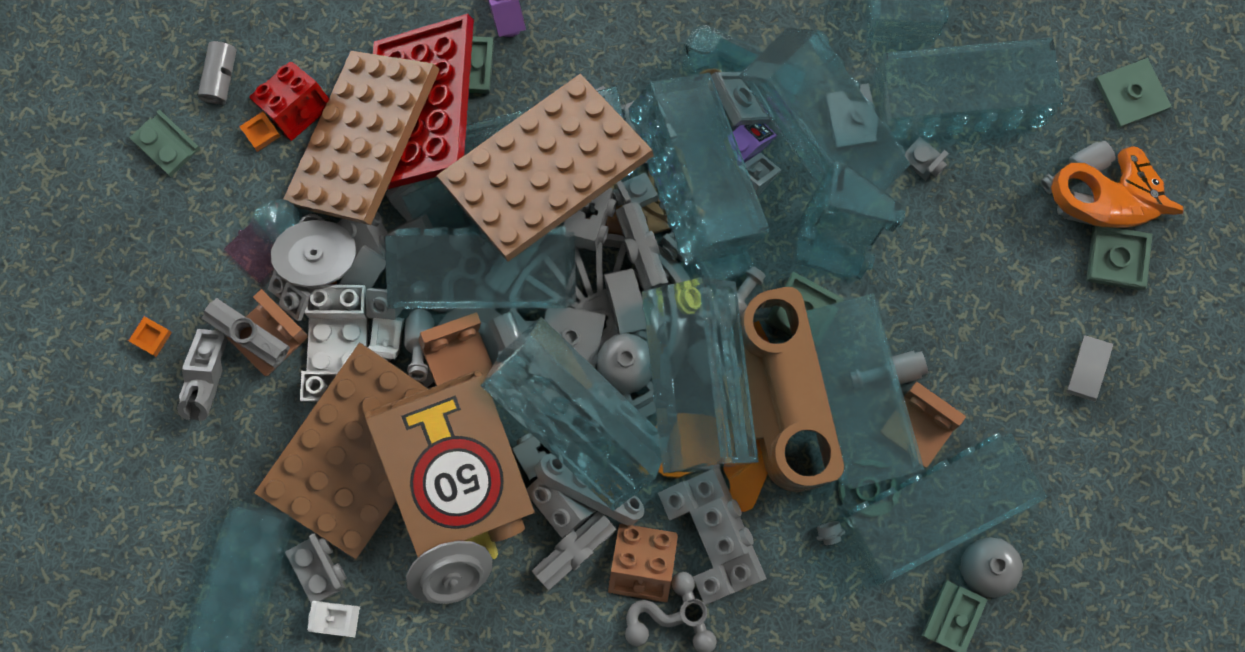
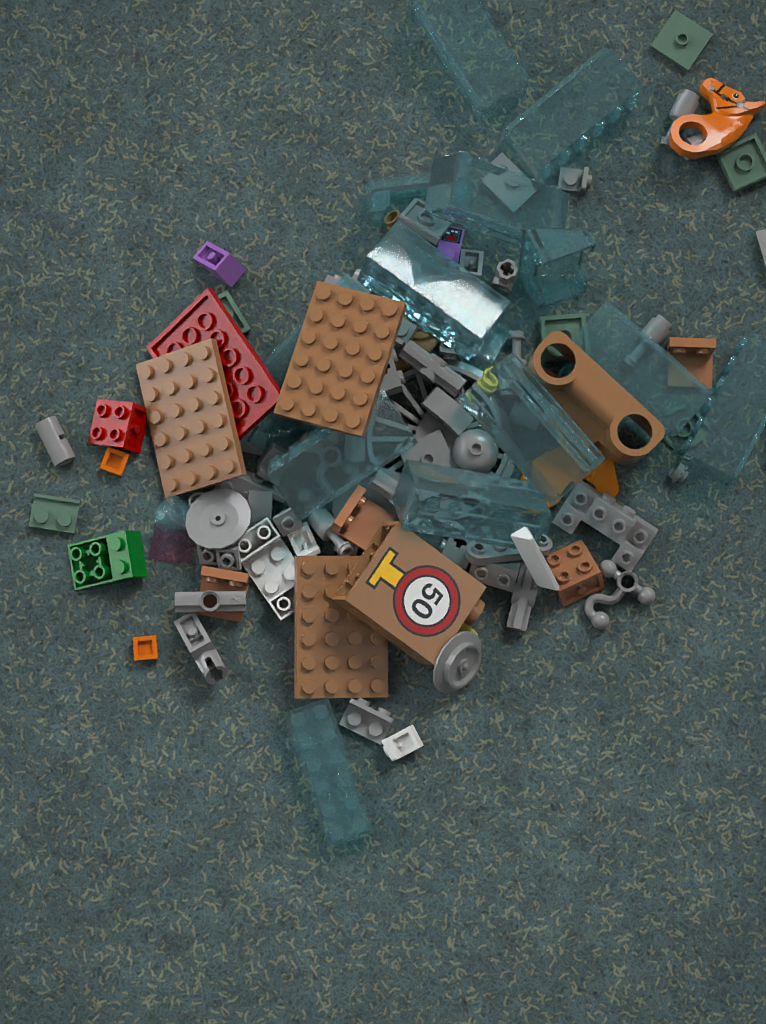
camera: 35 degrees left, 5 degrees up
(181, 223) = (107, 560): none -> green slope
(606, 517) = (534, 559): none -> white slope
(783, 203) = (505, 276): none -> light grey piece

